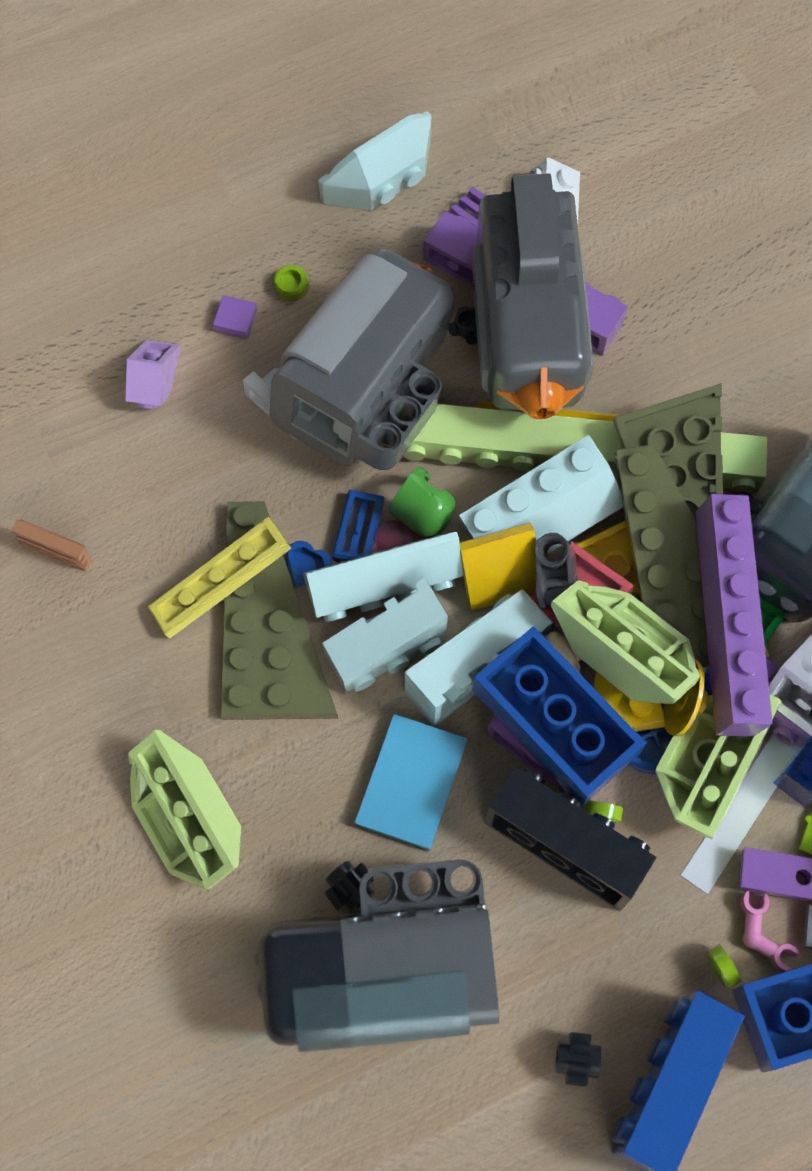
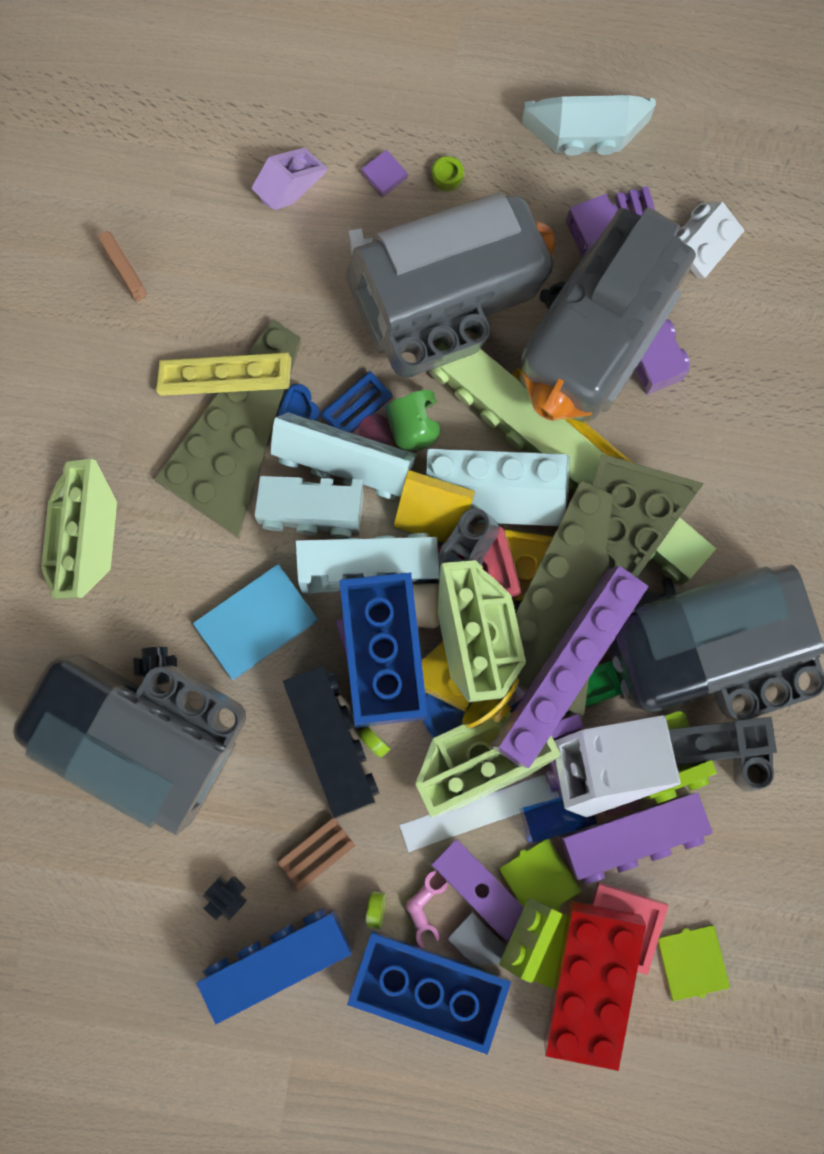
camera: 30 degrees right, 10 degrees up
(637, 921) = (292, 873): none -> nougat tile

